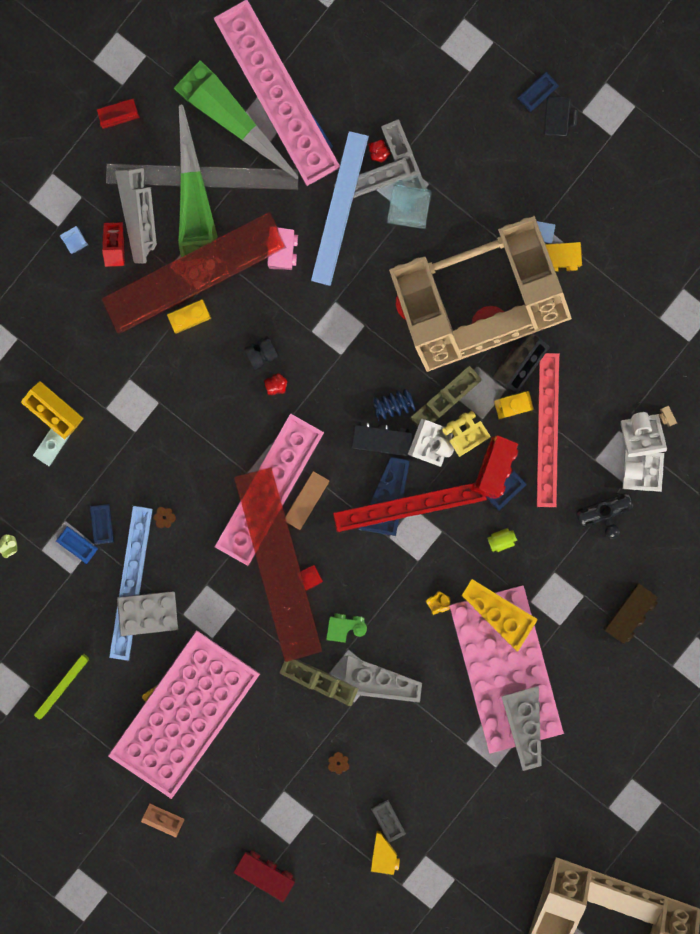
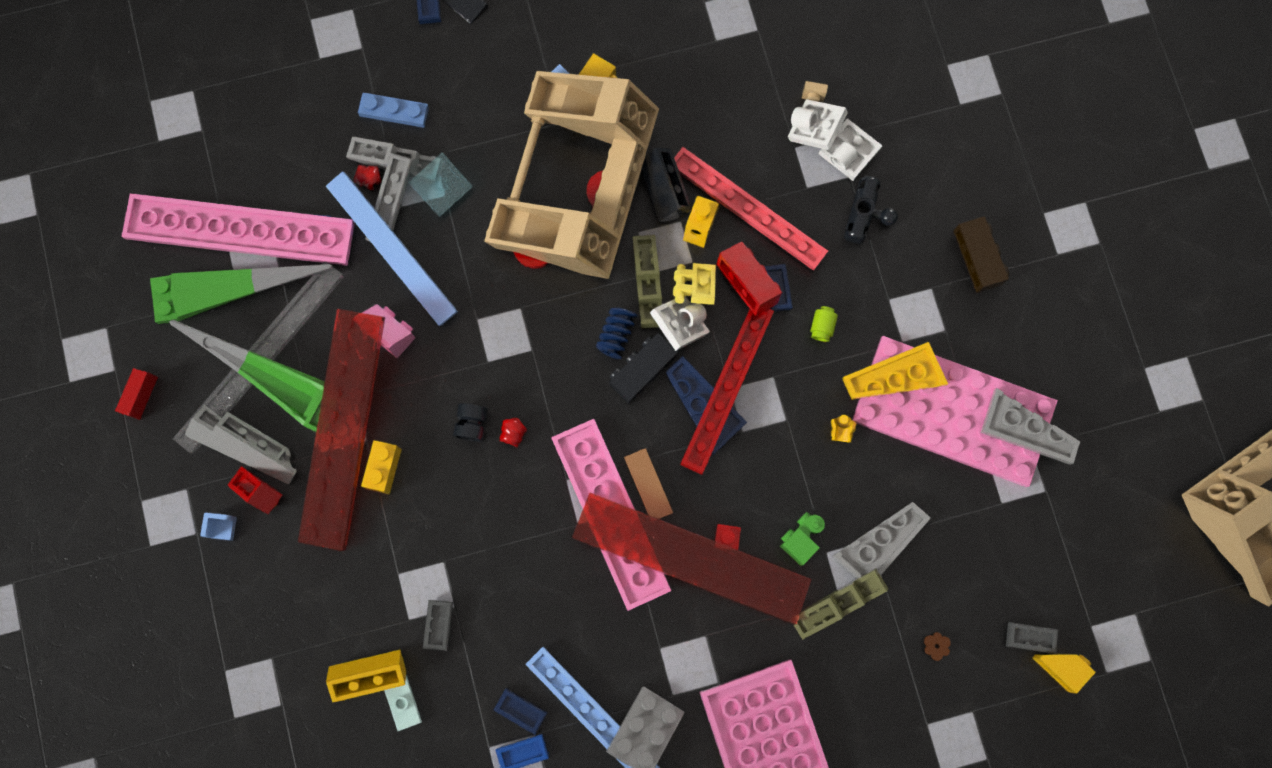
camera: 55 degrees left, 10 degrees down
(116, 430) = (438, 625): none -> dark grey plate
(170, 518) = (562, 648): reddish brown plant -> none
(440, 130) = (393, 110): none -> medium blue plate

